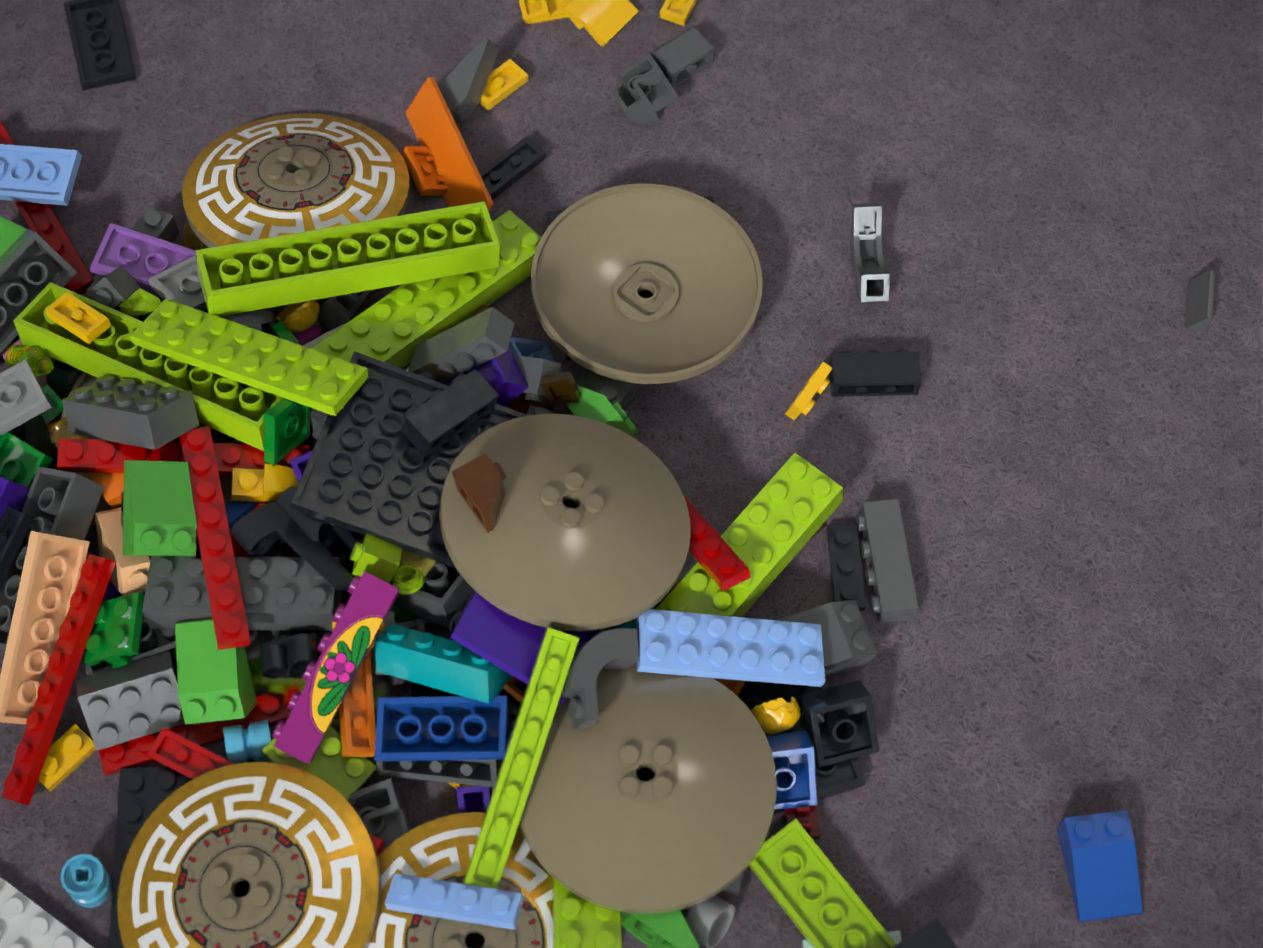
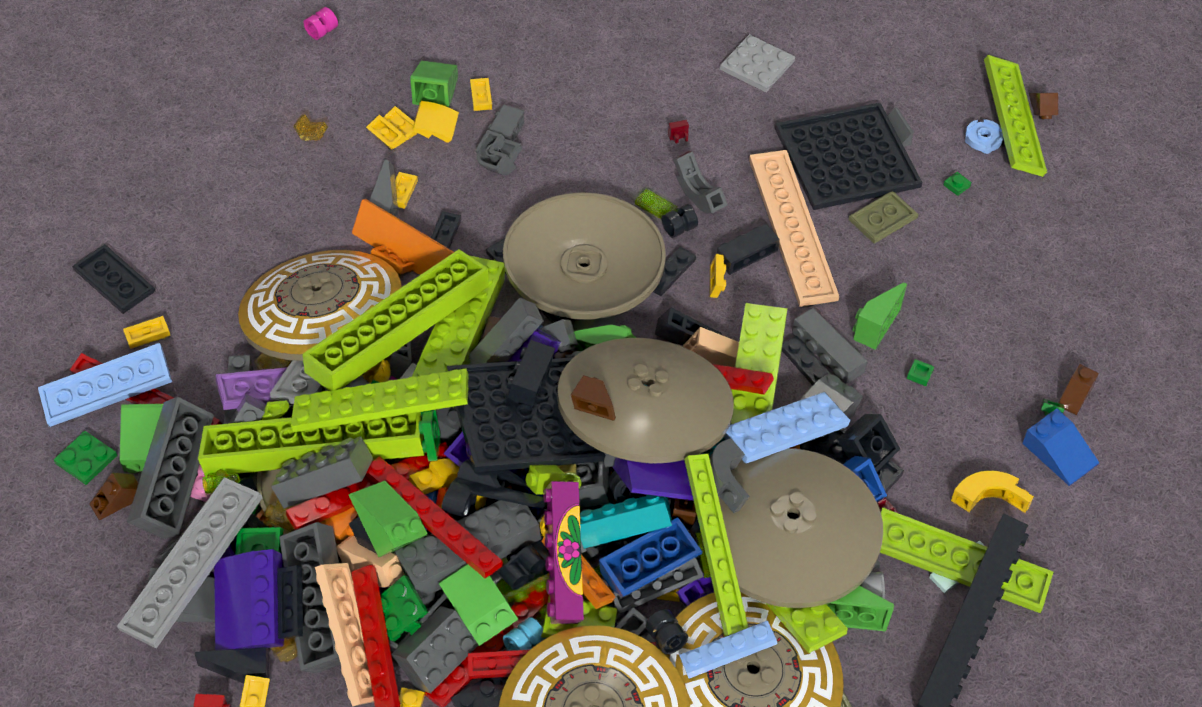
camera: 30 degrees left, 10 degrees down
(78, 317) = (245, 433): yellow plate -> none
(89, 127) = (146, 332): none -> yellow plate
(398, 833) = (666, 631): none -> black wheel
(560, 388) = (582, 333): dark brown plate -> none
(720, 448) = (678, 327): none -> black slope
(723, 485) = (713, 347): none -> light nougat slope
(760, 354) = (674, 268): none -> black plate
(777, 715) = (836, 451): yellow hair -> none
(801, 255) = (654, 203): none -> clear neon green plate
(812, 292) = (677, 221): none -> black wheel
(899, 166) = (678, 130): none -> dark red tile
(956, 375) = (794, 228): none -> light nougat plate
(965, 861) = (991, 484): none -> yellow arch
(979, 553) = (878, 316): none -> bright green slope
(985, 660) = (920, 372): none -> green plate
(1073, 118) = (757, 63): none -> light grey plate
(1091, 417) = (883, 217): none -> olive tile
(1103, 308) = (847, 156): none -> black plate
(1129, 799) = (1049, 406): none -> green plate
(1183, 797) = (1078, 389): none -> reddish brown slope
(1228, 419) = (957, 183): none -> green plate

